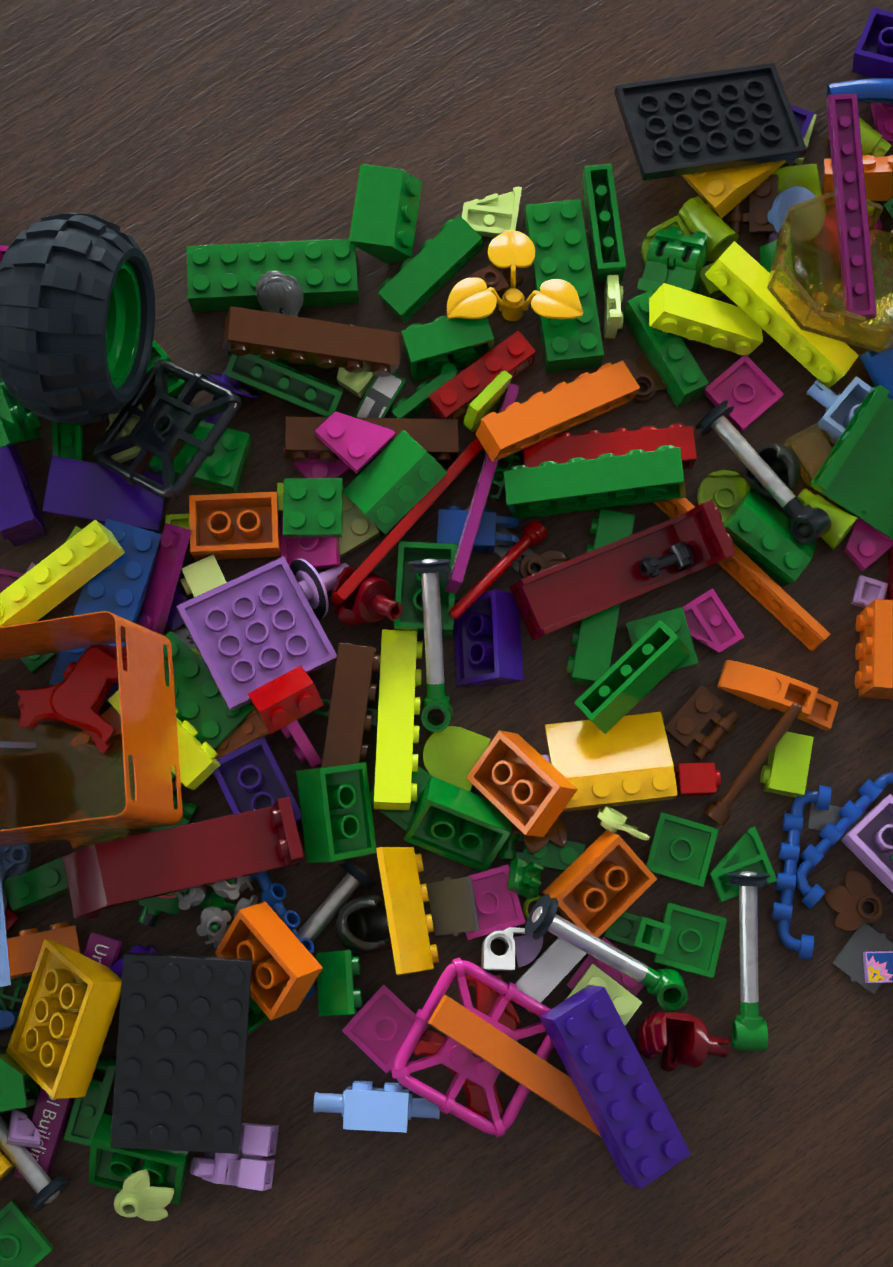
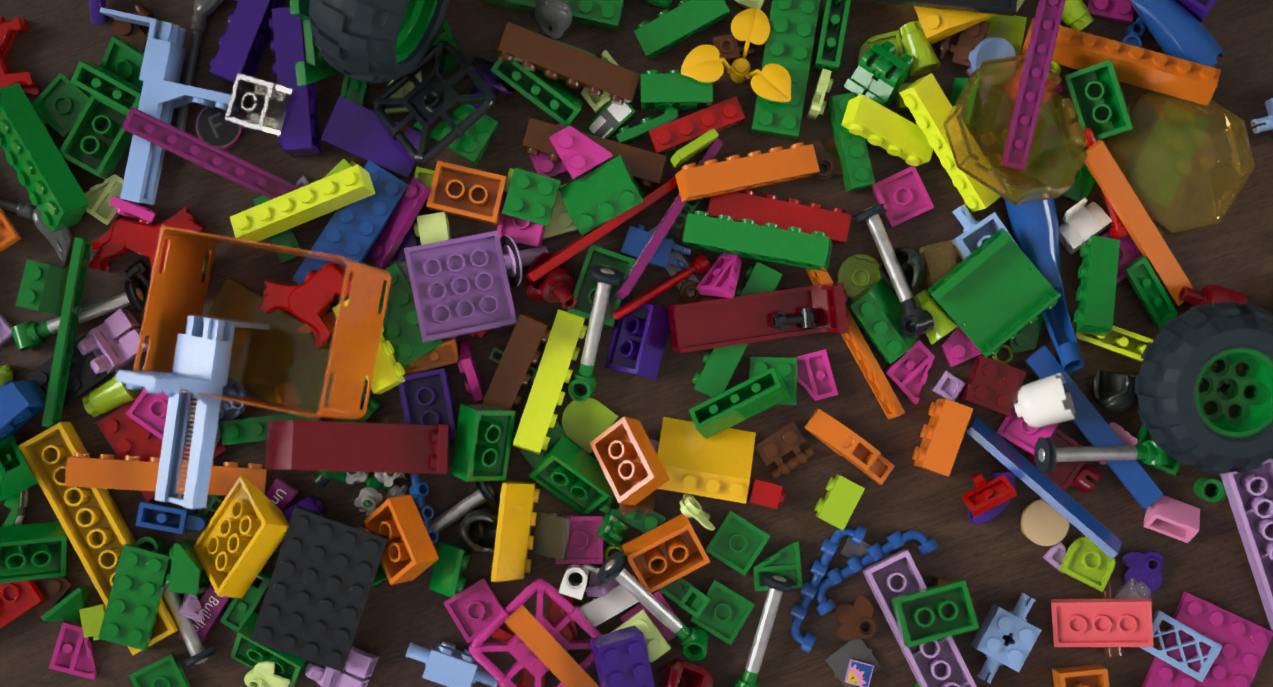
camera: 20 degrees right, 10 degrees up
(285, 699) = (467, 346): red brick -> none
(535, 953) = (600, 590): none -> lavender tile
(564, 539) = (721, 277): none -> dark pink wing
(721, 808) = (776, 522): reddish brown piece -> none
(820, 587) = (911, 371): none -> dark pink wing

